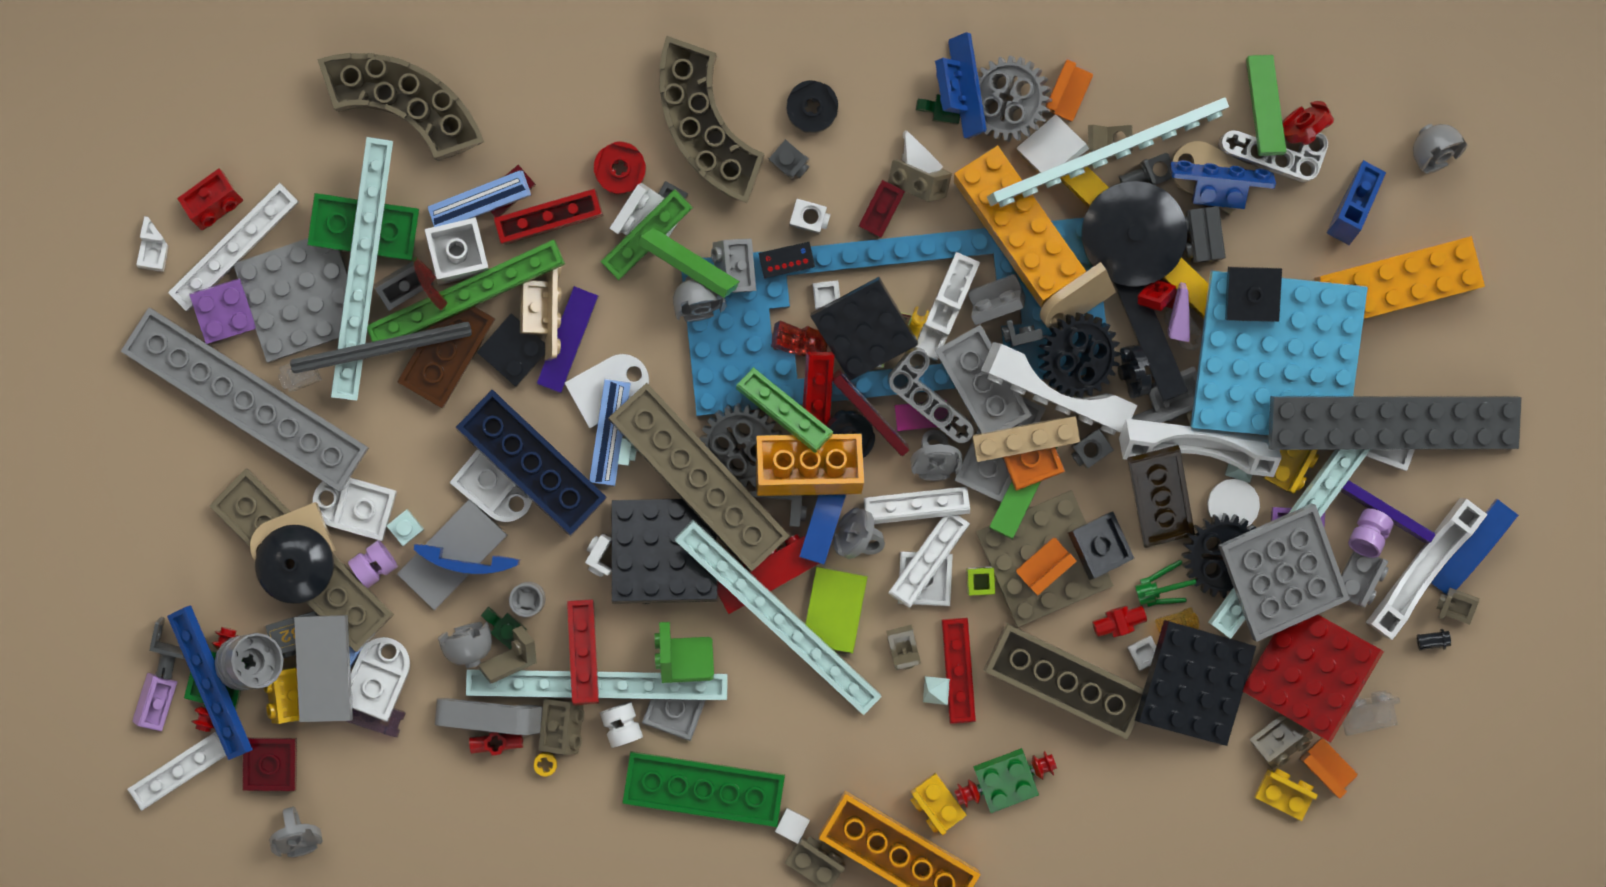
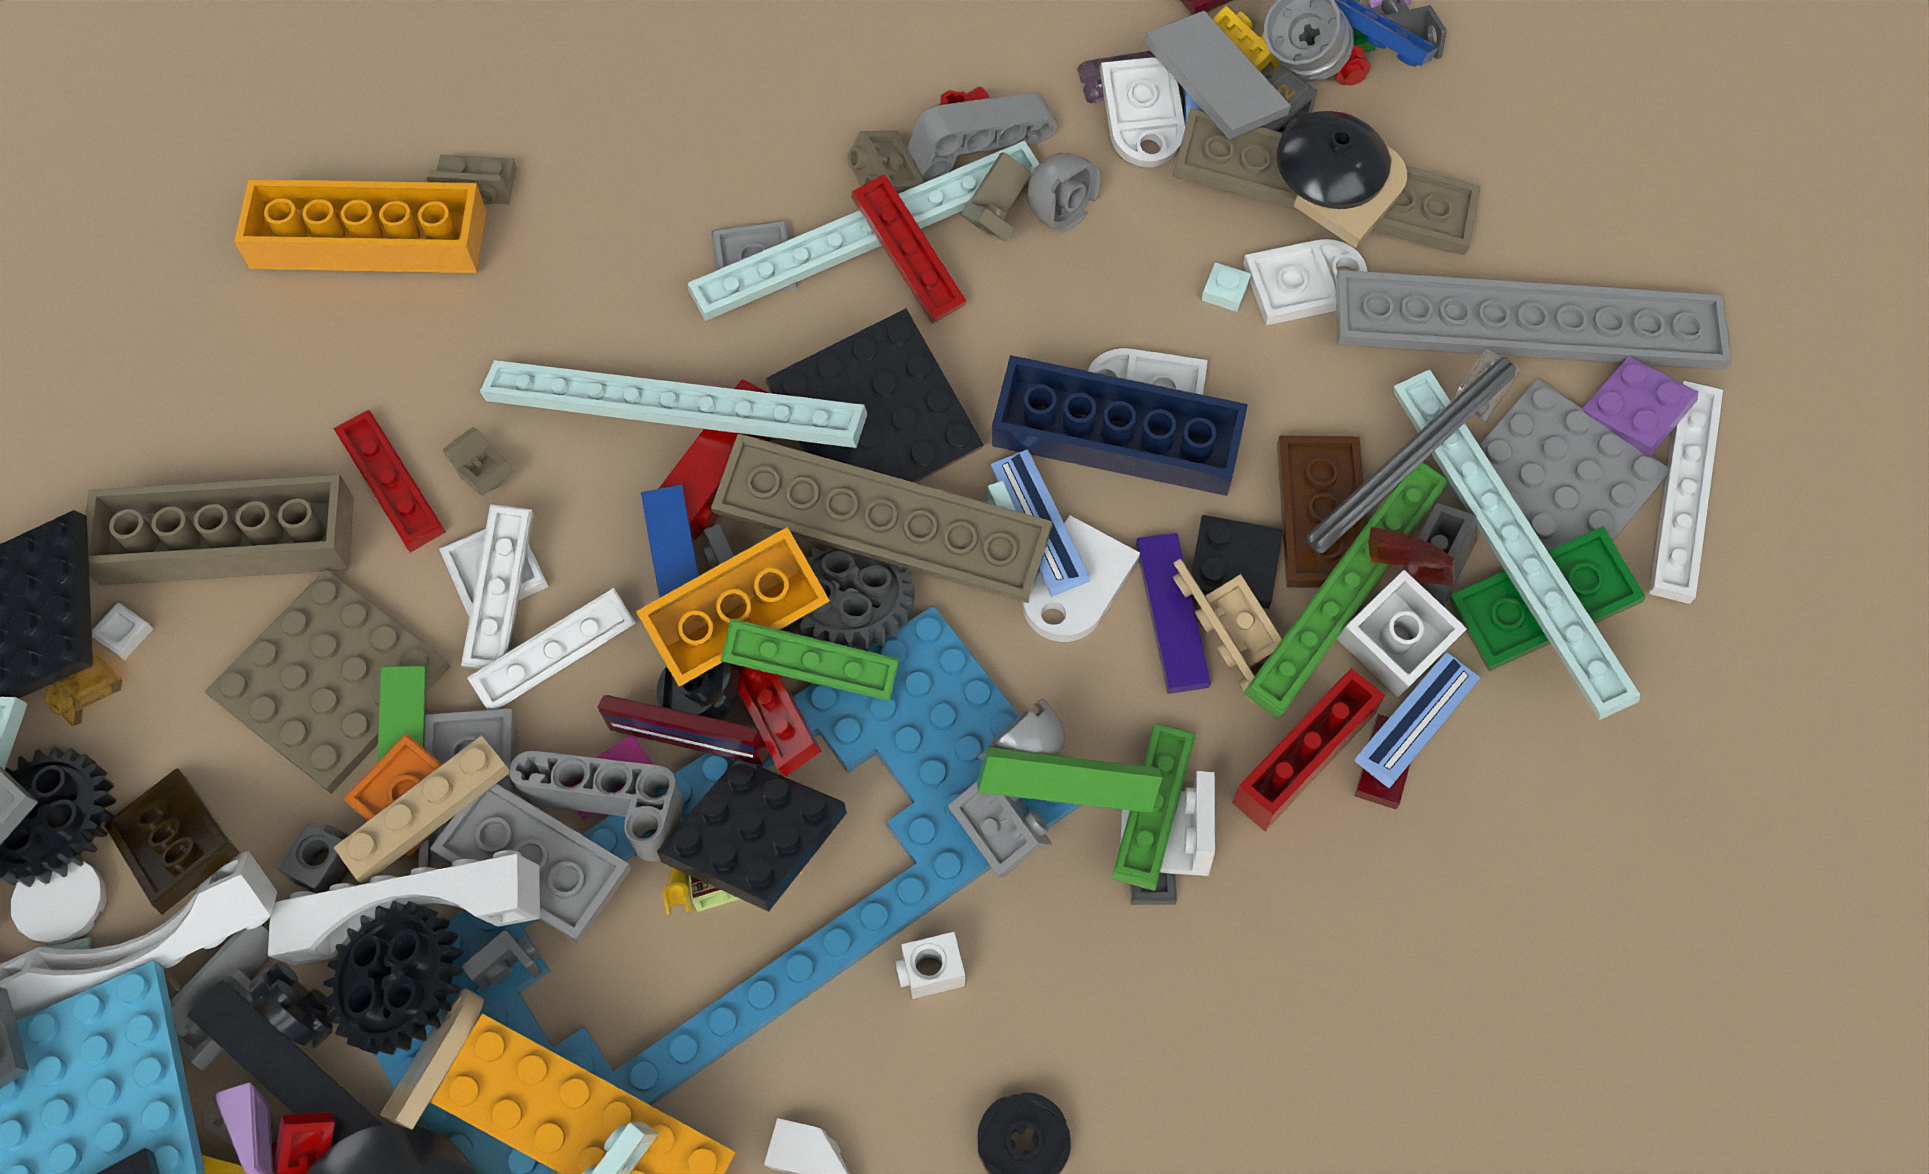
camera: 150 degrees right, 25 degrees down
(152, 249) = (1781, 438): white slope -> none
(210, 199) = (1763, 529): red bracket -> none
(365, 569) = (1237, 220): lavender wheel -> none
(405, 91) = (1629, 805): dark tan brick -> none
(434, 555) = (1168, 259): blue slope -> none
(465, 537) = (1146, 285): light grey tile -> none
(503, 626) = (1029, 239): dark green plate -> none
(527, 599) = (1018, 274): light grey wheel -> none
(551, 758) = (881, 116): yellow bush -> none
(597, 549) = (953, 354): white bracket -> none
(612, 155) = (1264, 859): red plate -> none
(625, 733) = (808, 198): white wheel -> none
(683, 657) = (774, 304): bright green bracket -> none
(697, 124) = (1183, 1011): dark tan brick -> none
(703, 789) = (662, 187): green plate -> none
(786, 260) = (927, 877): black tile -> none
(790, 160) = (1009, 1037): dark grey bracket -> none
(792, 825) = (526, 204): white tile -> none
(797, 340) = (850, 775): clear red slope -> none
(825, 293) = (841, 870): white tile -> none
(836, 607) = (600, 469): lime tile -> none
(855, 534) = (617, 562): light grey tile -> none
(881, 208) = (826, 1042): dark red plate -> none
(918, 182) = (787, 1110): dark tan bracket -> none
(936, 690) = (408, 439): light aqua slope -> none
(937, 460) = (552, 719): light grey tile -> none
(938, 804) = (342, 310): yellow bracket -> none
(947, 304) = (647, 954): white slope -> none
(980, 581) = (405, 593): lime brick -> none
(996, 299) = (568, 995): light grey bracket -> none
(1006, 780) = (255, 377): green plate -> none
(1045, 566) = (311, 657): orange panel -> none
(1101, 545) = (243, 730): black plate -> none
(1119, 621) = (173, 649): red axle -> none
(1149, 592) = (143, 709): green plant -> none

